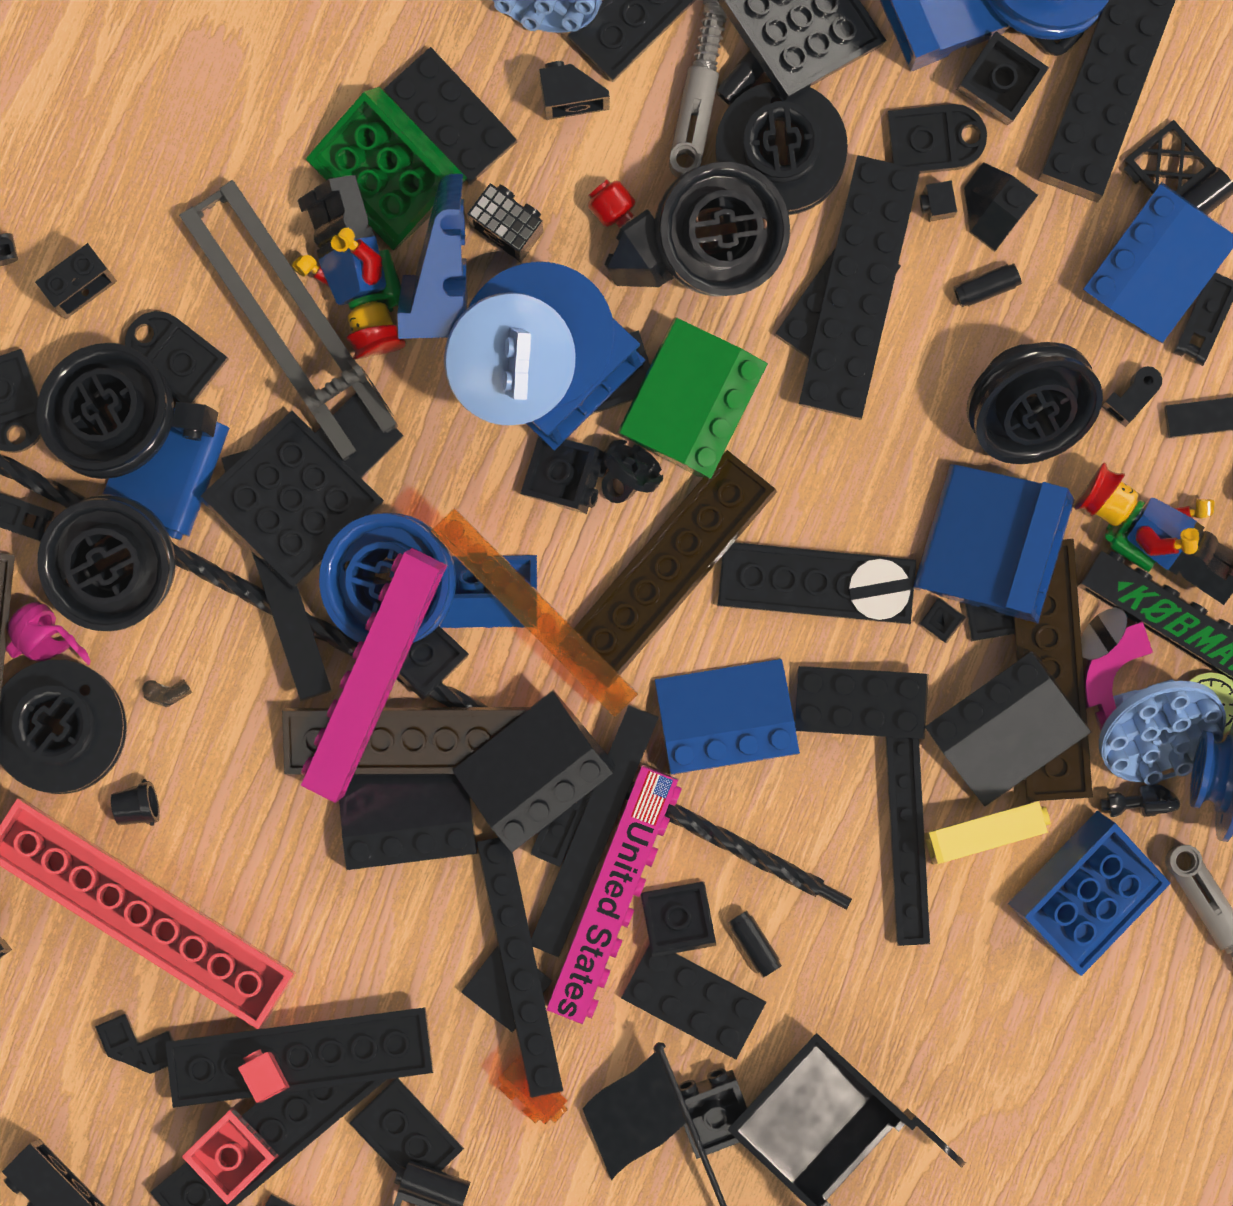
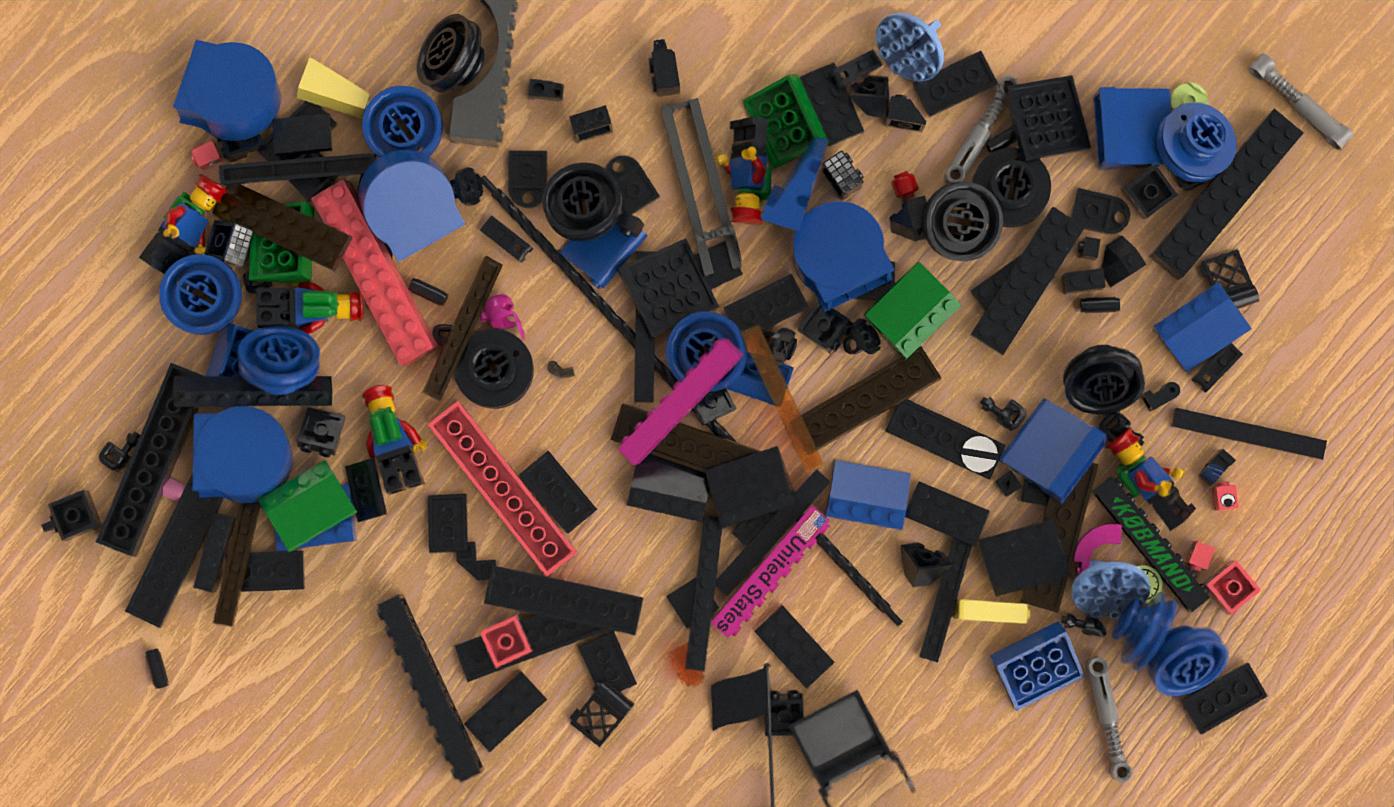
camera: 20 degrees right, 0 degrees up
(71, 1000) = (448, 523): none -> black tile
(93, 596) = (539, 303): black wheel -> none
(136, 805) = (522, 427): black piece -> none
(164, 153) = (665, 70): none -> black hinge
(230, 887) = (558, 492): none -> black plate
(263, 1075) = (540, 603): coral brick -> none
(460, 472) = (768, 305): none -> black plate
(468, 45) = (856, 69): none -> black plate
(504, 526) = (782, 344): none -> black tile
(508, 79) = (871, 95): none -> black slope
(509, 359) = (819, 252): light blue bracket -> none
(678, 919) = (801, 598): black tile -> none
(754, 944) = (839, 627): black piece -> none
(851, 797) = (922, 565): none -> black slope
(897, 514) = (1004, 415): none -> black piece
(948, 256) = (1083, 281): none -> black brick
(1090, 463) = (1122, 425): none -> black piece
(1103, 633) = (1096, 523): white sticker -> none

